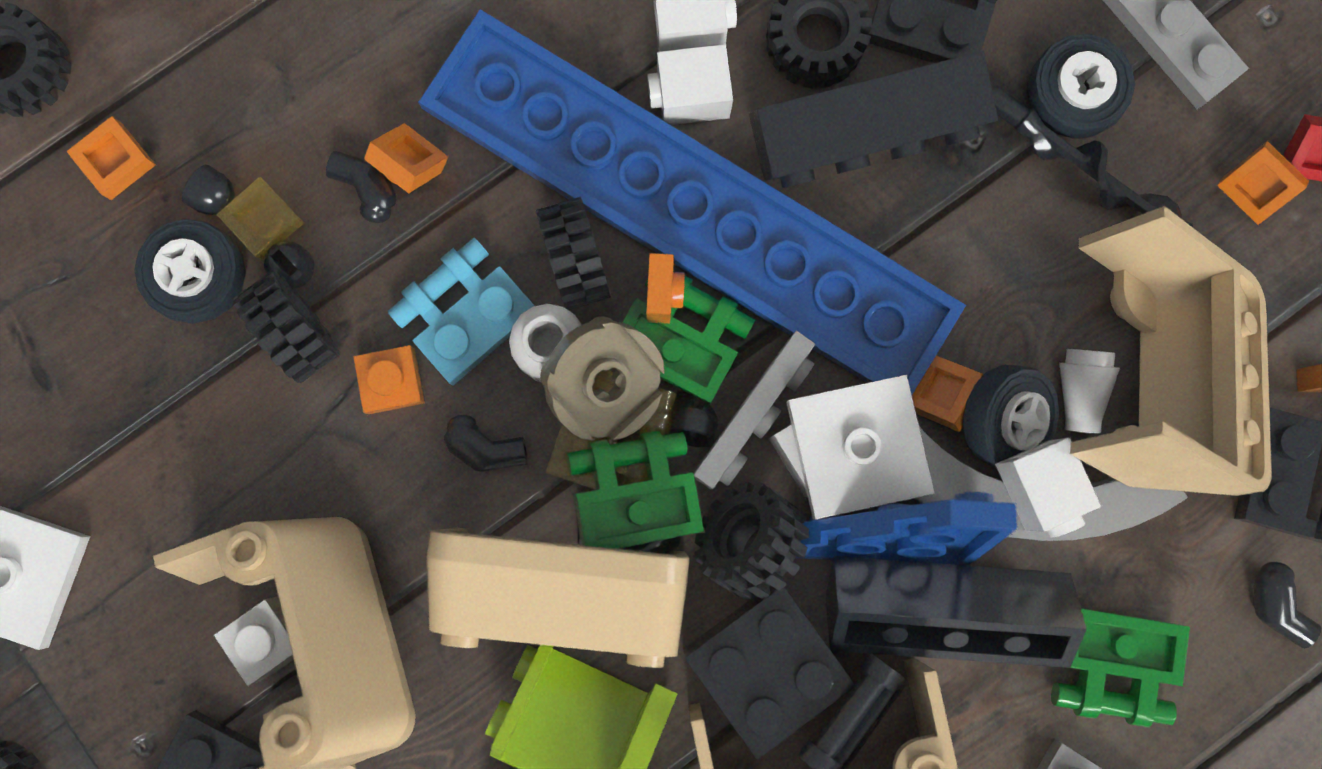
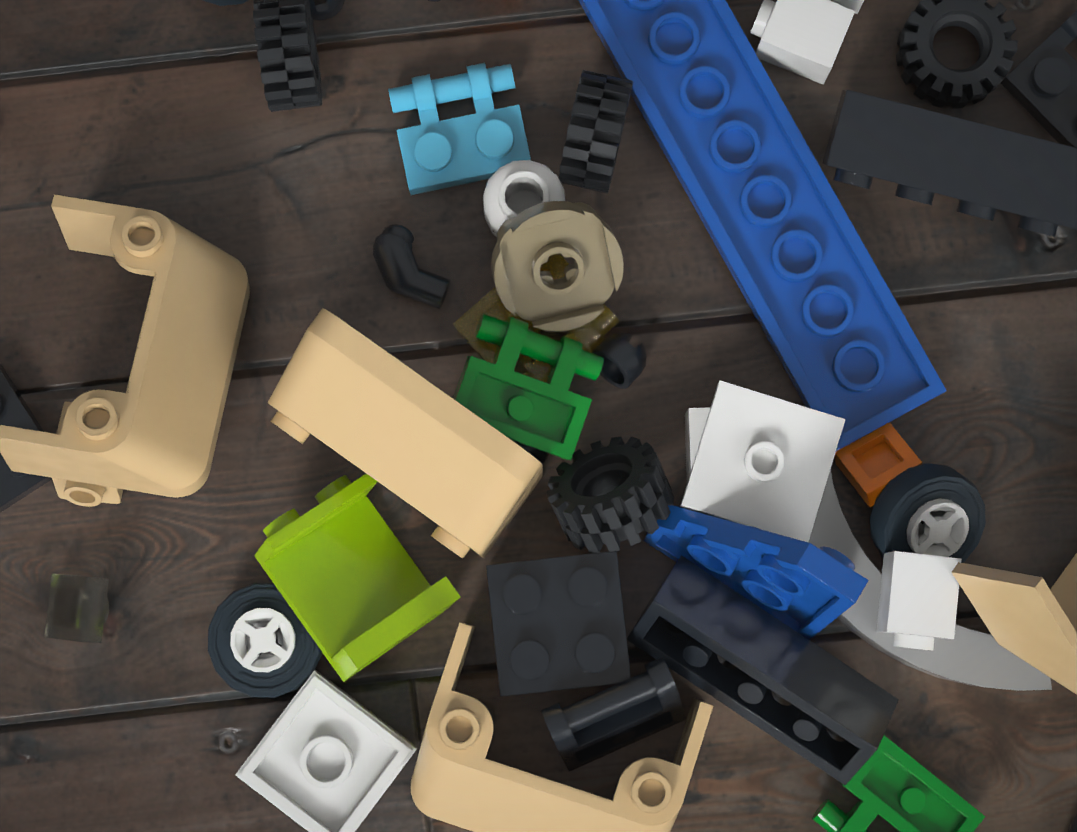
camera: 35 degrees right, 0 degrees up
(257, 641) = (104, 331): white brick -> none
(388, 379) = (353, 155): orange plate -> none
(664, 288) = (661, 212): orange plate -> none
(693, 358) = (650, 292): green plate -> none
(756, 412) = (684, 380): light grey plate -> none
(1086, 388) = (1021, 533): white cone -> none

